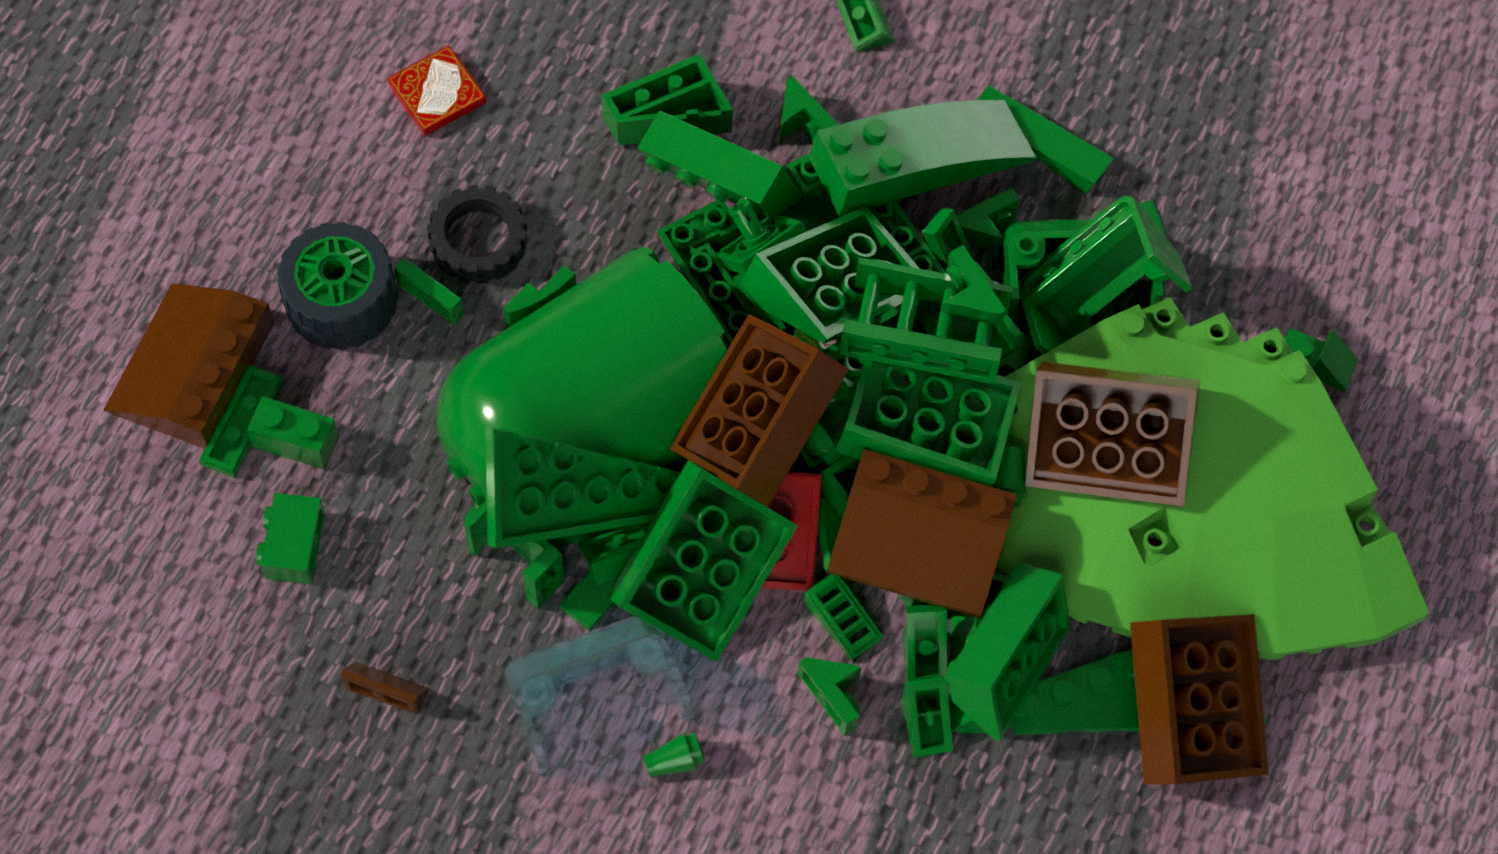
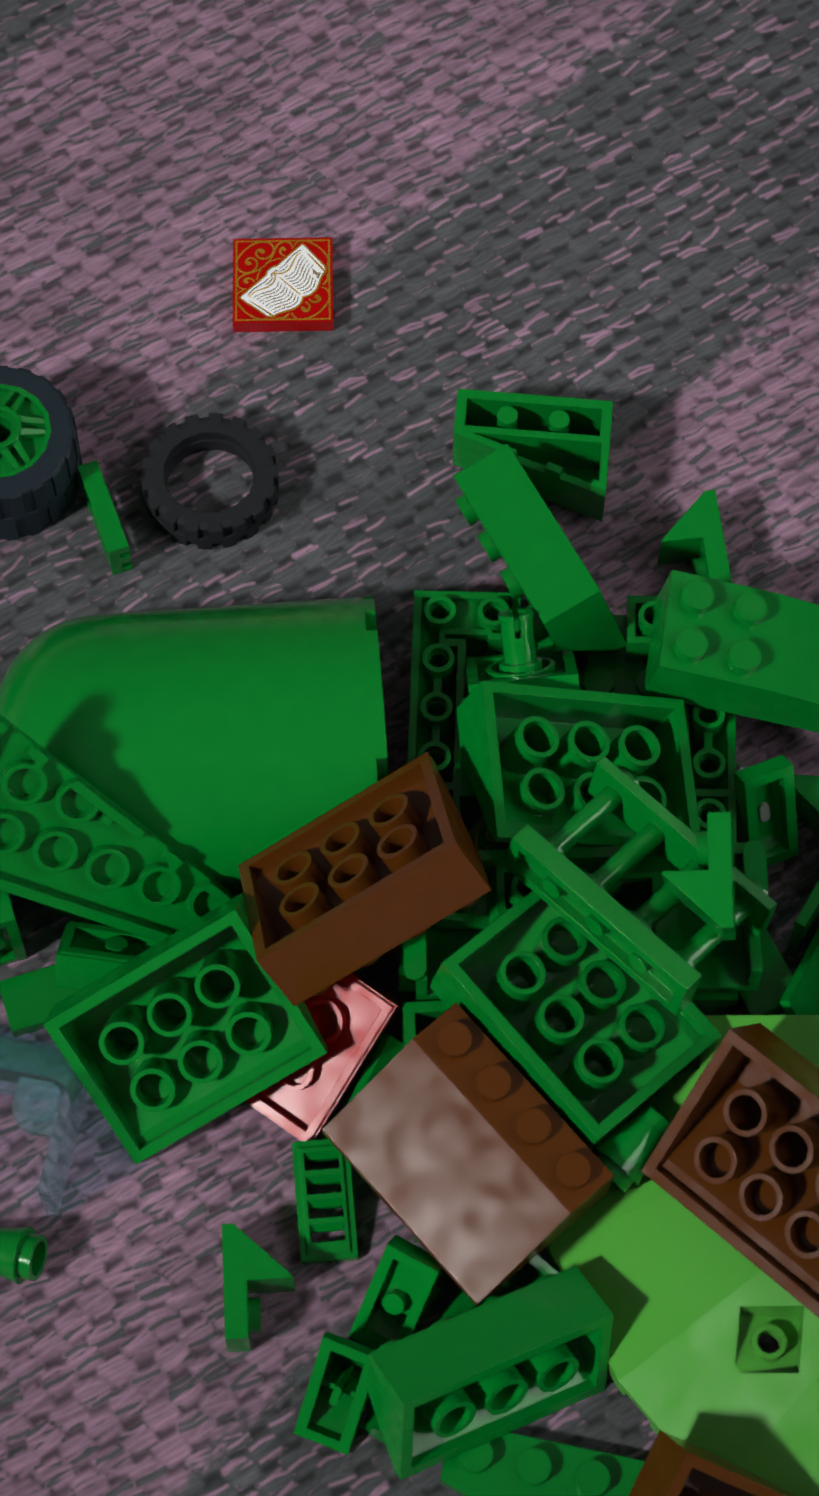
camera: 35 degrees right, 0 degrees up
(531, 299) = (211, 591): green slope -> none

